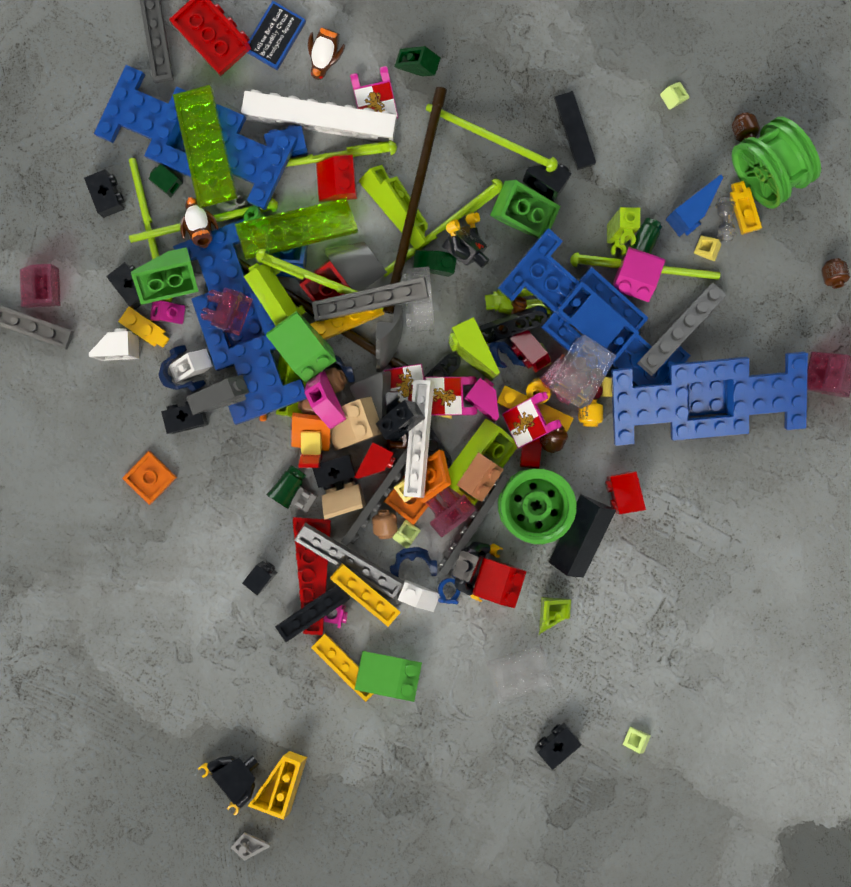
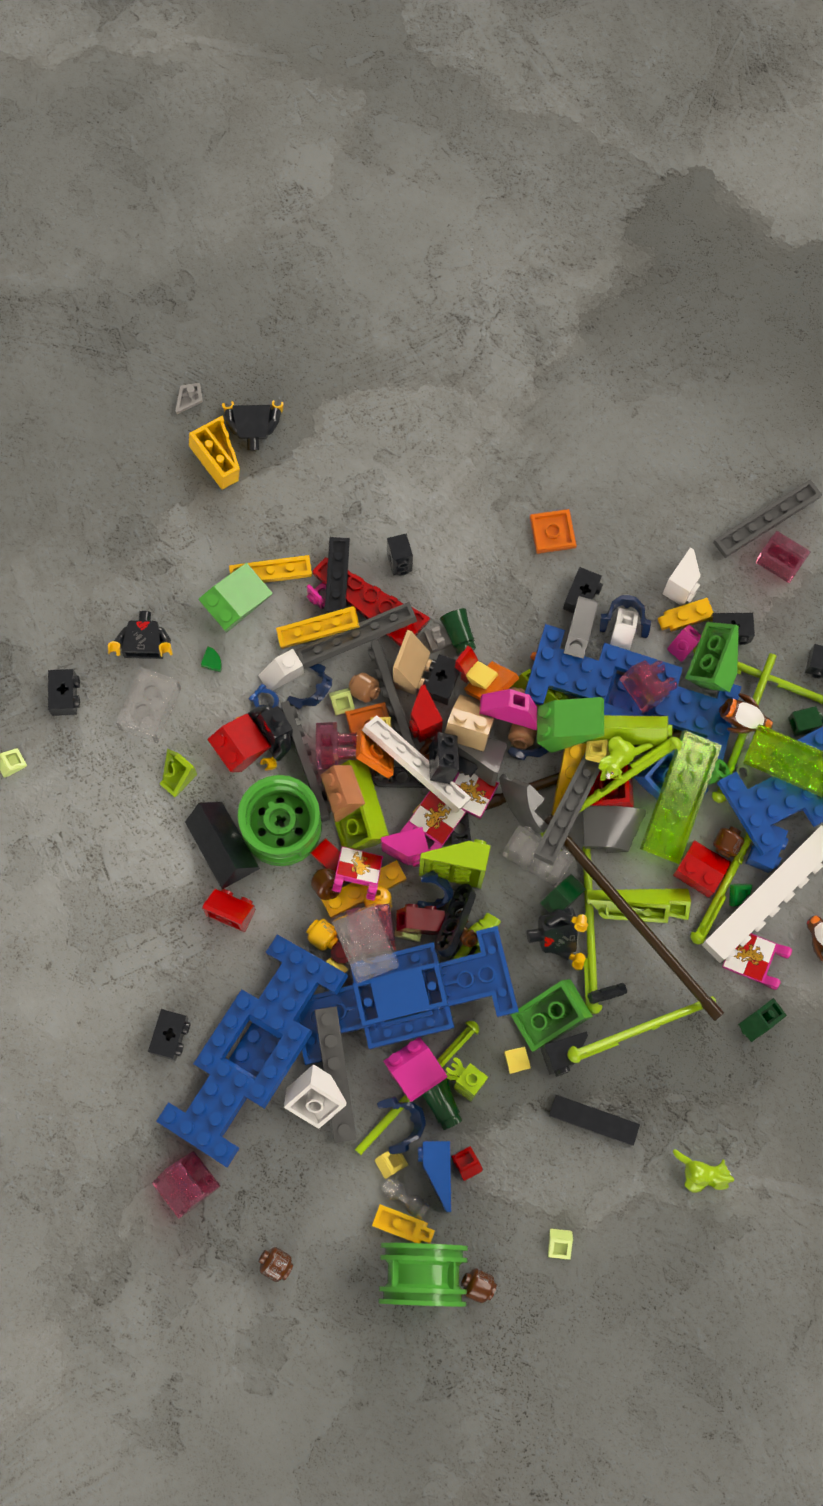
camera: 125 degrees right, 15 degrees down
(300, 291) = (620, 755): none -> lime animal
(303, 173) = (728, 842): none -> reddish brown head
(309, 310) = (596, 750): none -> light yellow slope
(336, 141) = (738, 893): none -> green tile
(448, 655) = (211, 660): none -> green tile
(473, 720) = (142, 639): none -> torso
(481, 182) = (607, 993): none -> black axle
(559, 28) = (700, 1175): none -> lime animal
(573, 213) = (517, 1060): none -> light yellow slope
(665, 252) = (417, 1118): none -> dark blue helmet
(669, 196) = (467, 1163): none -> red slope
(710, 330) = (314, 1097): none -> white slope
(753, 465) = (165, 1024): none -> black brick

